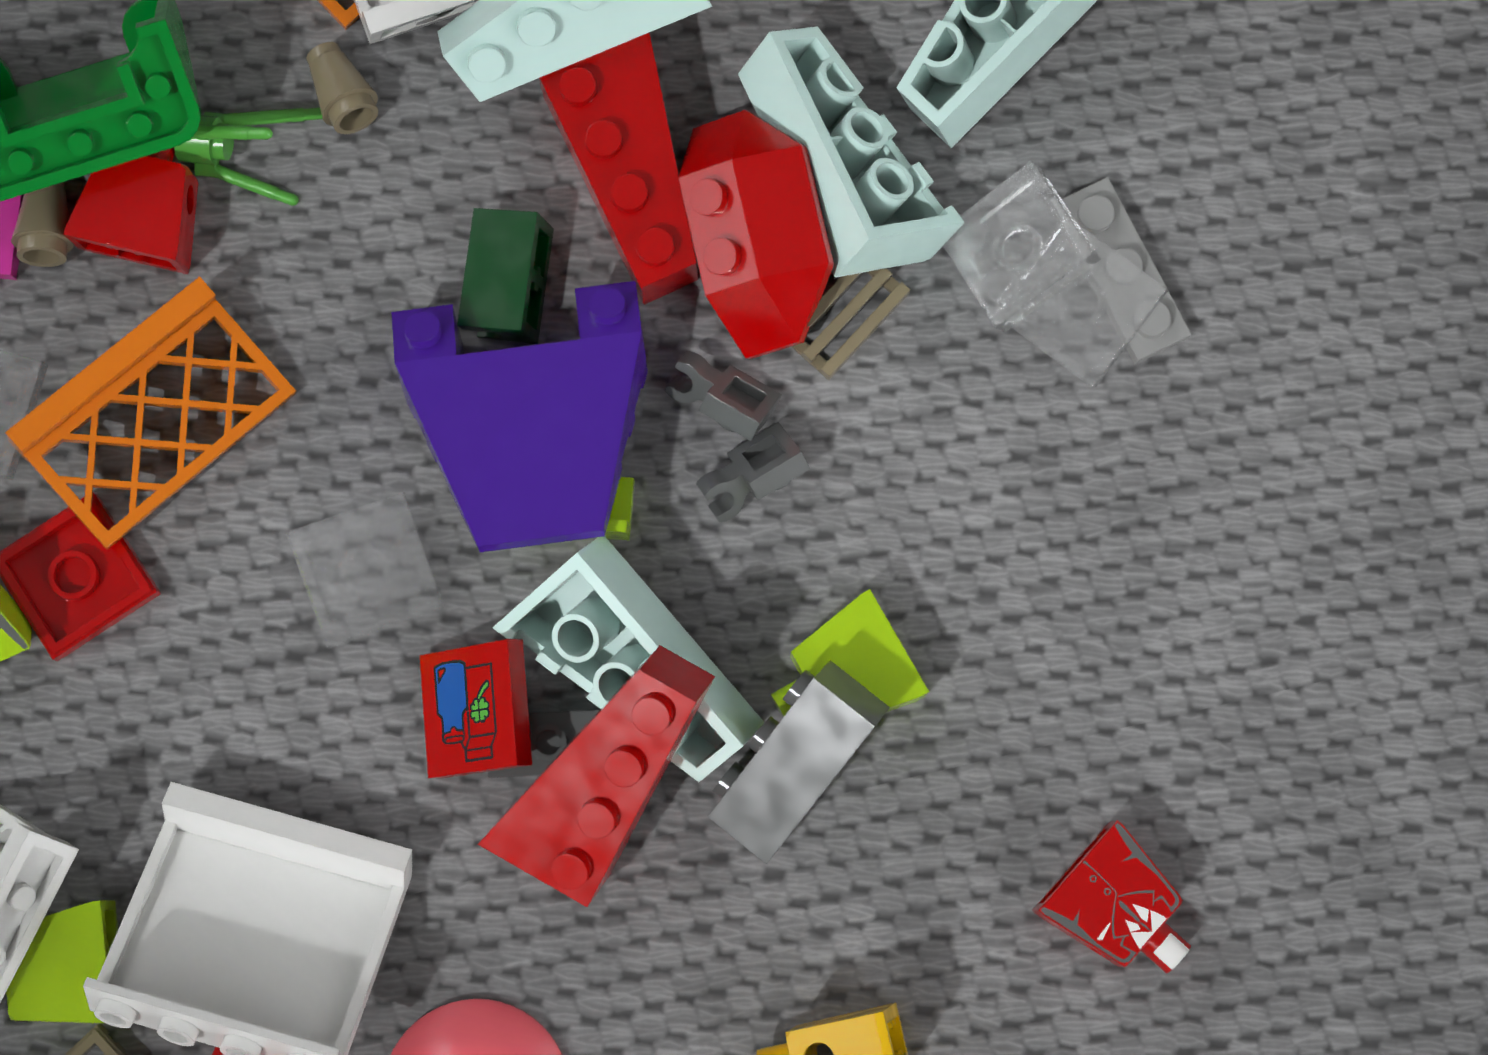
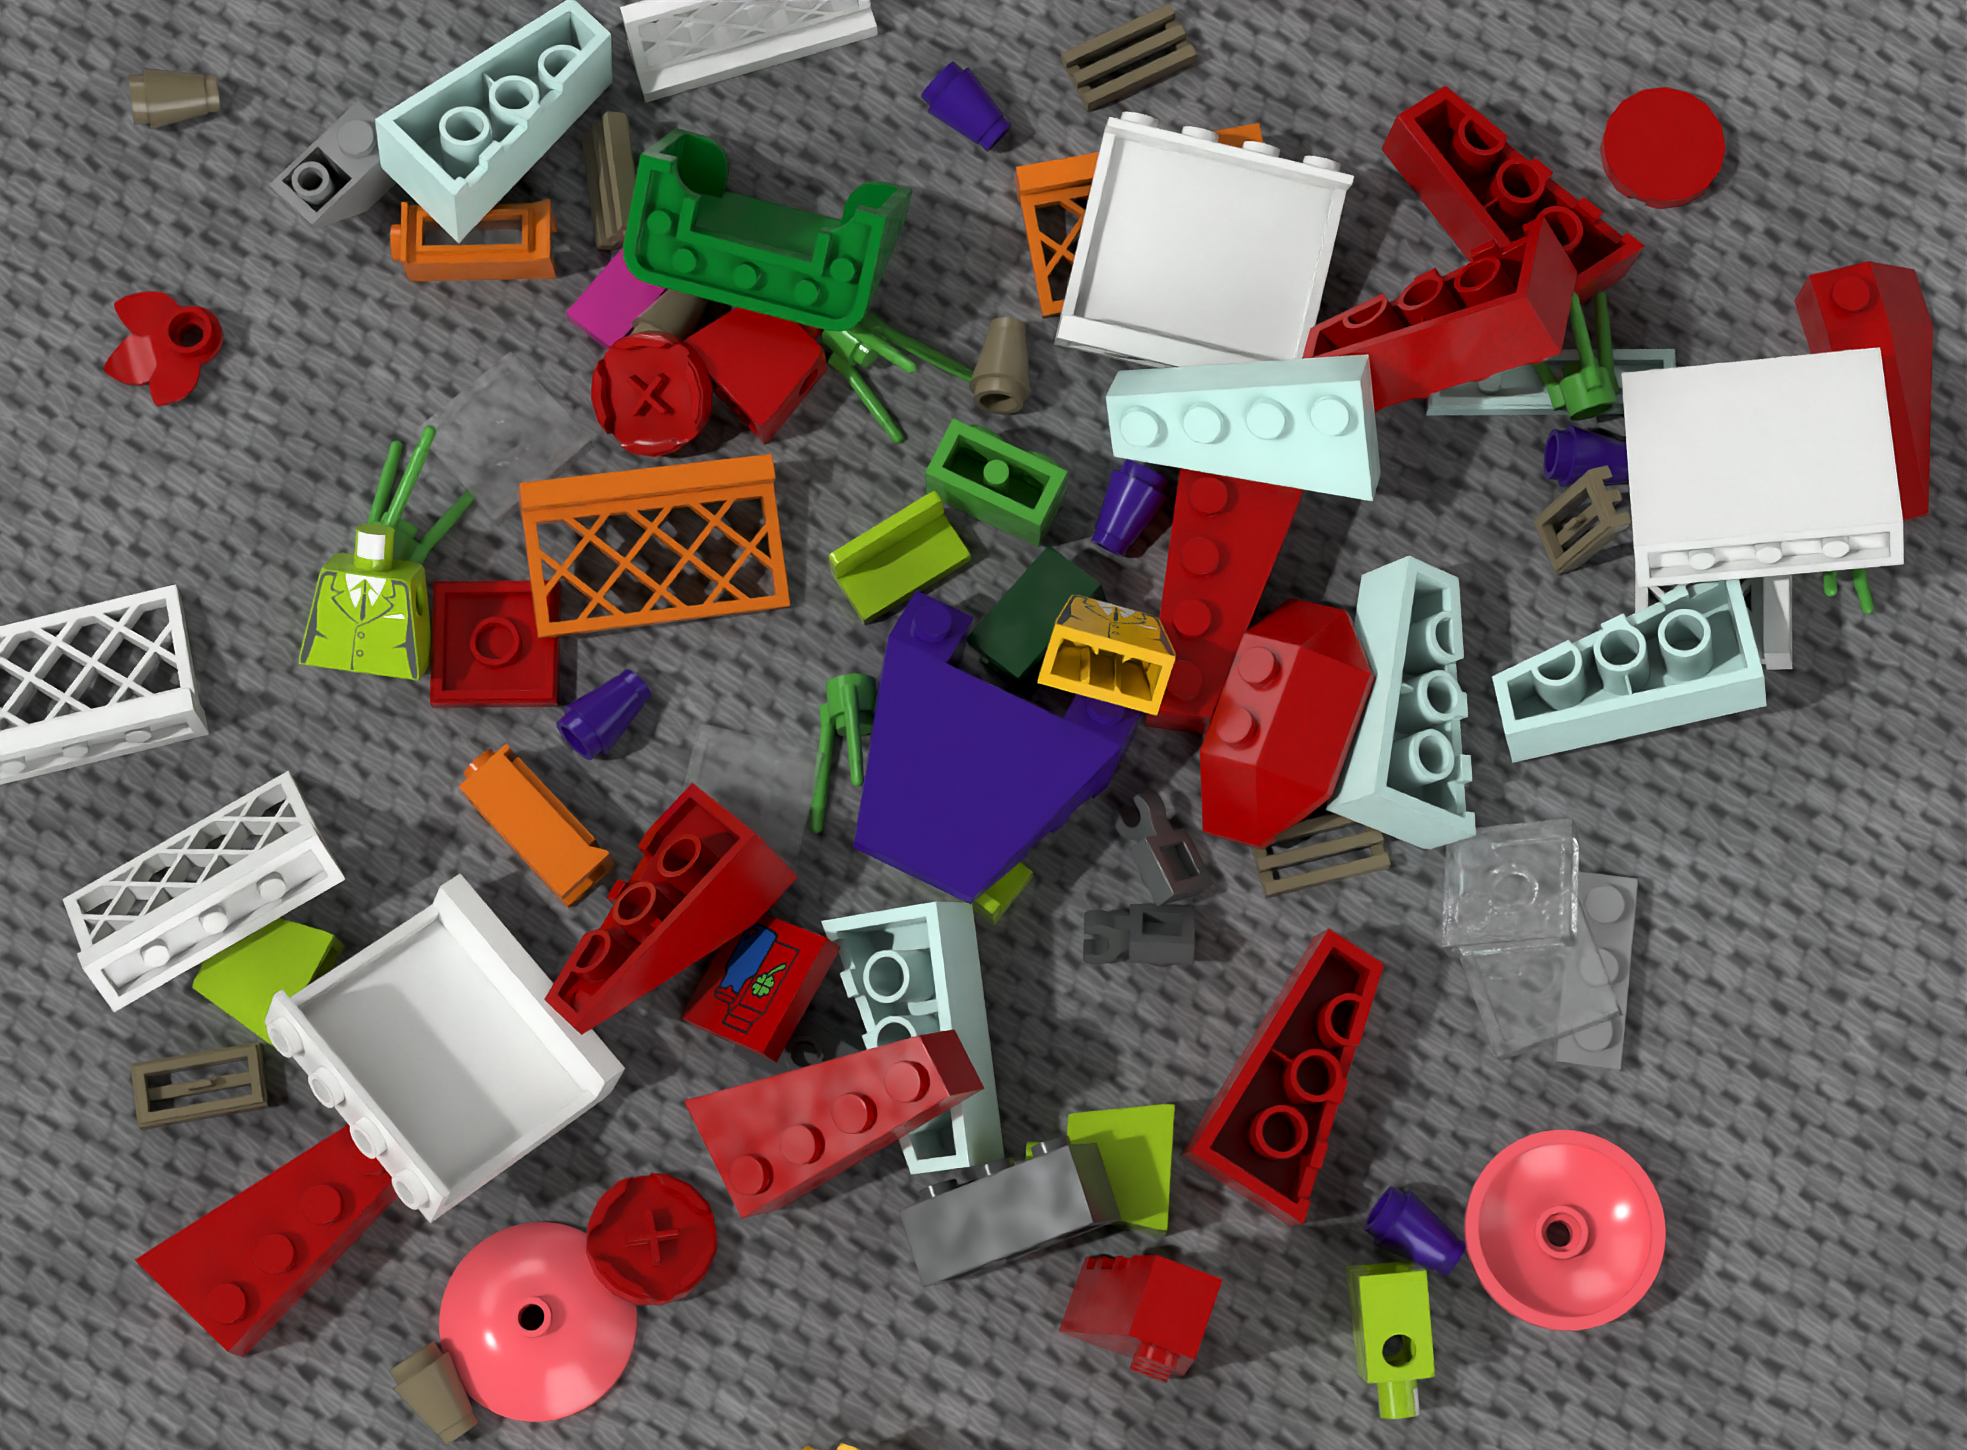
camera: 35 degrees right, 5 degrees down
(66, 289) = (652, 393): none -> red tile
(202, 576) = (602, 715): none -> dark purple cone
(205, 700) = (535, 824): none -> orange window
(358, 296) = (898, 558): none -> lime panel
(370, 678) = (689, 895): none -> red wedge
(397, 183) = (997, 481): none -> bright green brick
(403, 444) = (851, 712): none -> bright green plant
(516, 136) = (1128, 506): none -> dark purple cone
(523, 970) = (651, 1239): none -> red tile
(579, 266) = (1107, 654): none -> yellow torso
(945, 511) = (1281, 1098): none -> red wedge
(964, 764) = (1143, 1311): none -> red wedge
(1115, 565) = (1413, 1231): none -> dark purple cone
(1135, 636) = (1385, 1303): none -> lime torso
(1267, 463) = (1611, 1223): none -> coral dish

